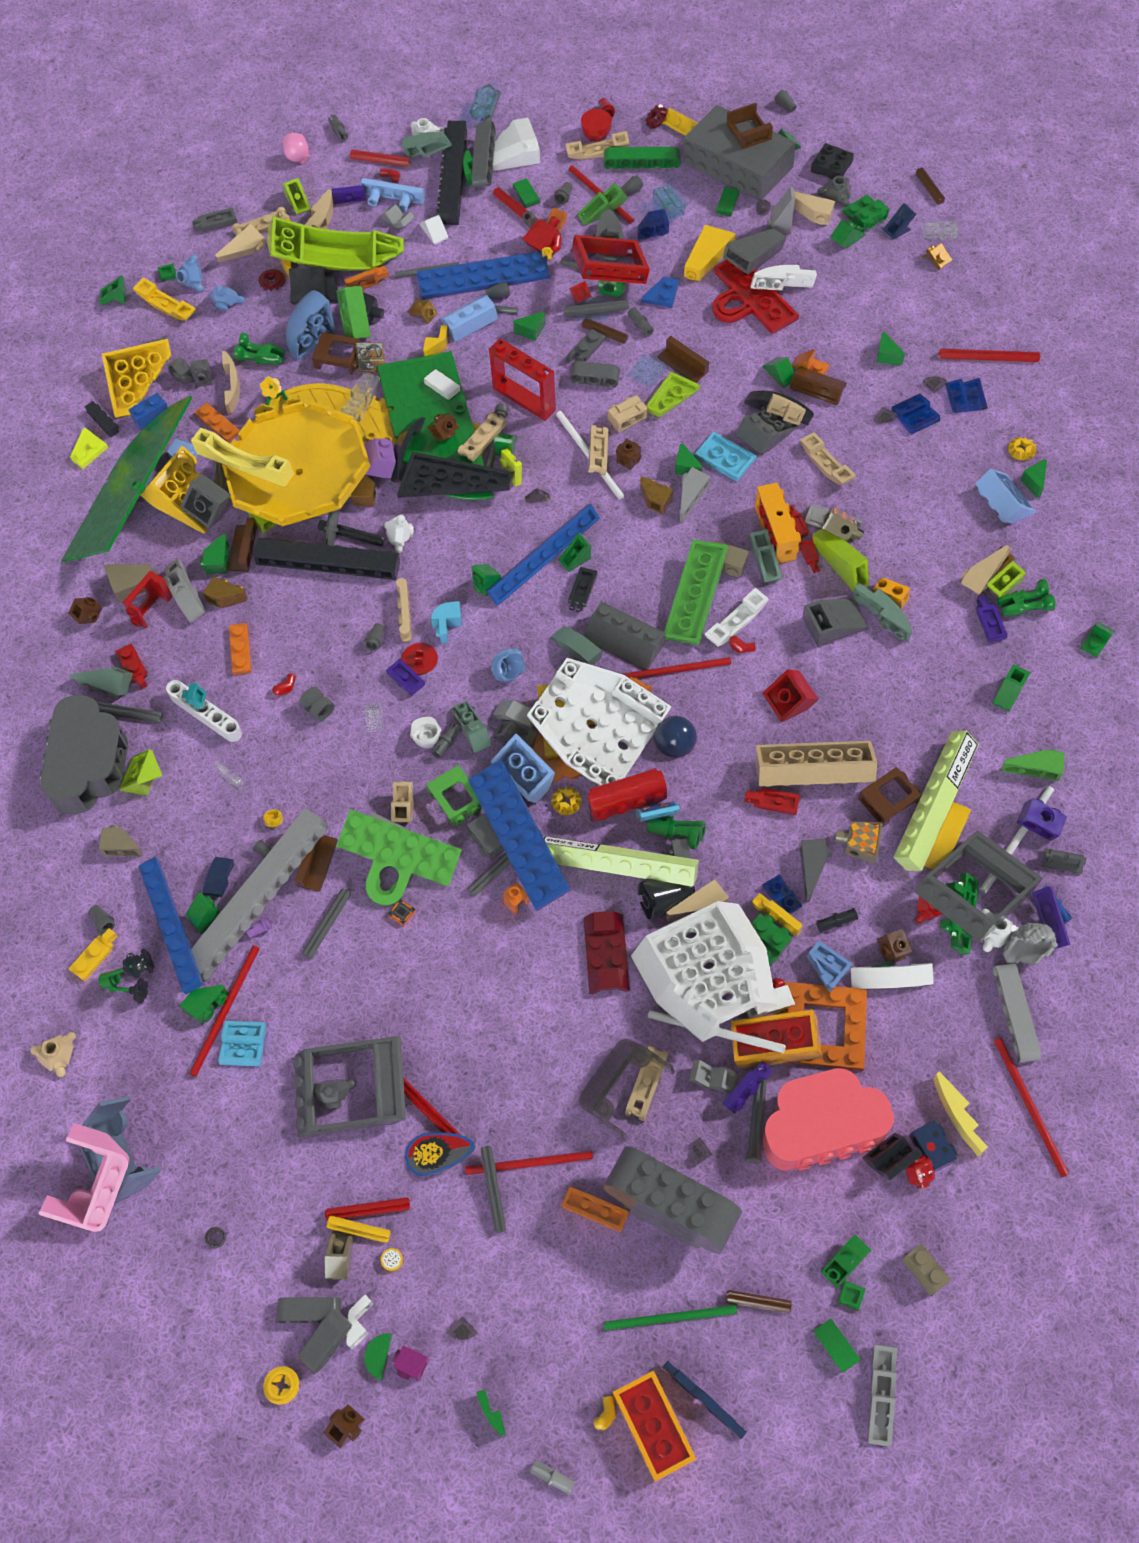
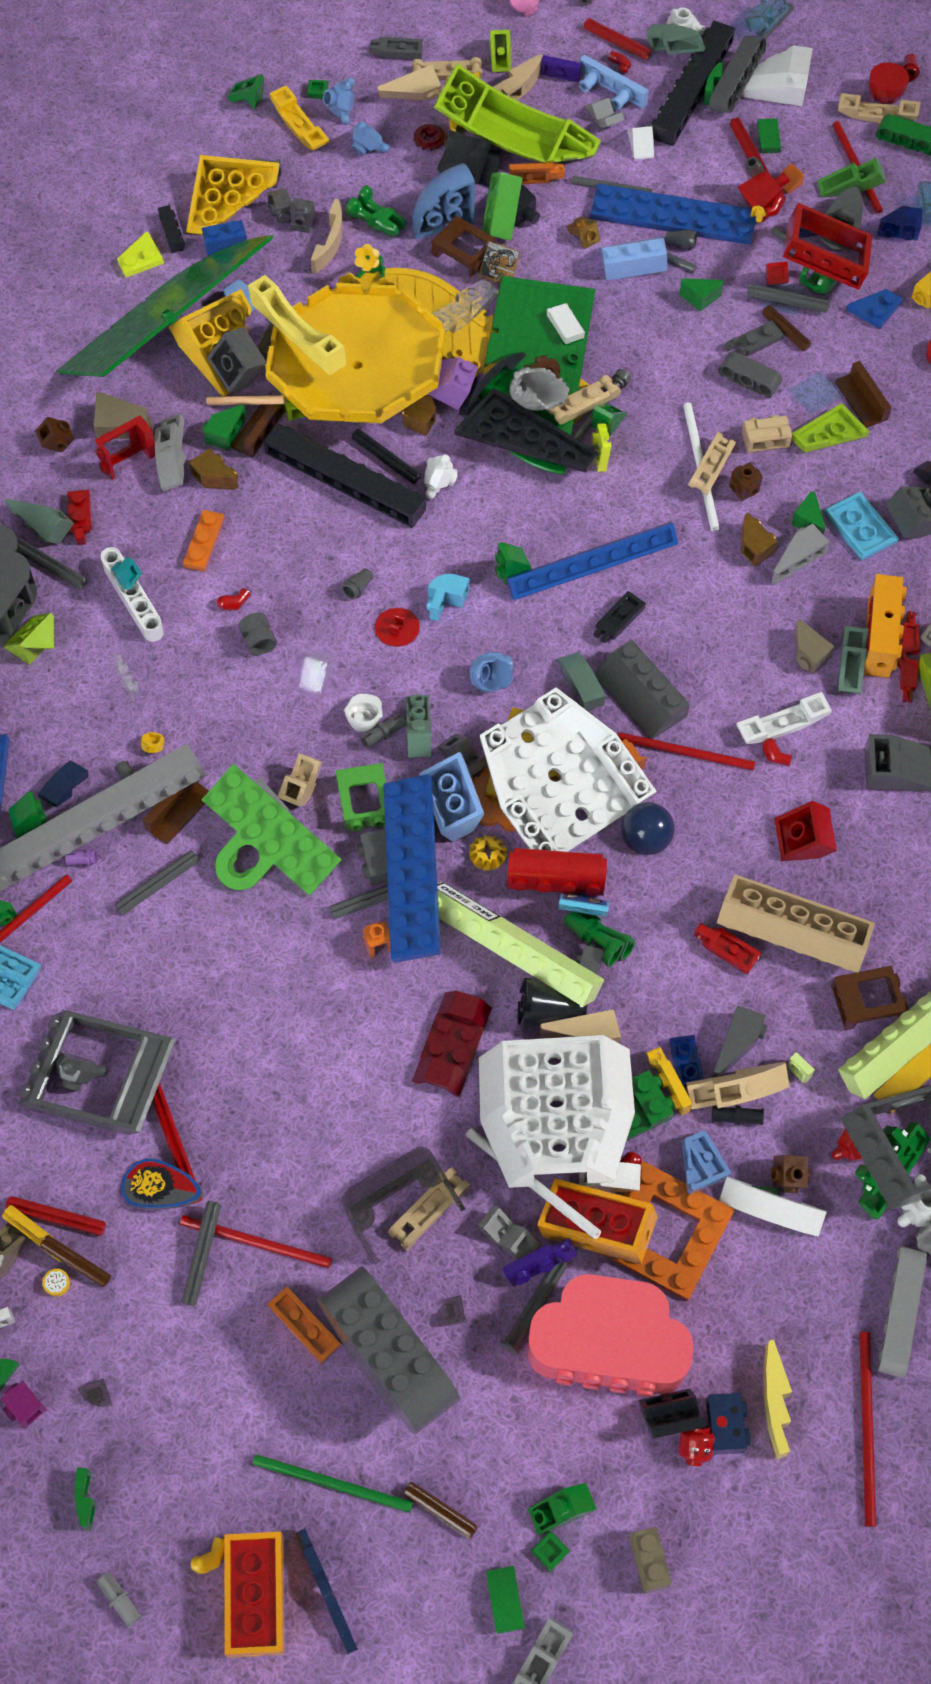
camera: 20 degrees right, 0 degrees up
(217, 422) = (294, 276): orange plate -> none
(227, 528) = (246, 400): none -> light nougat bar
(331, 528) = (364, 442): dark grey pin -> none
(400, 1236) = (75, 1261): none -> reddish brown axle
(402, 912) = (245, 904): tile -> none
(403, 604) = (401, 573): tan plate -> none
(405, 677) = (371, 642): dark purple plate -> none
(436, 345) = (580, 276): yellow slope -> none
(448, 440) = (538, 389): none -> light grey piece
(514, 712) = (472, 726): light grey slope -> none
(537, 496) = (617, 491): clear smoke tile -> none
(540, 406) = (671, 385): red window -> none
(563, 193) = (810, 151): dark grey cone -> none
(576, 553) = (630, 574): green slope -> none
(633, 185) = (899, 169): dark grey cone -> none
(640, 321) = (833, 332): dark grey pin -> none
(695, 592) = (748, 670): bright green plate -> none
(830, 899) = (739, 1087): none -> tan slope
(861, 840) = (810, 1034): dark tan torso -> none
(865, 867) = (800, 1068): none -> yellowish green tile

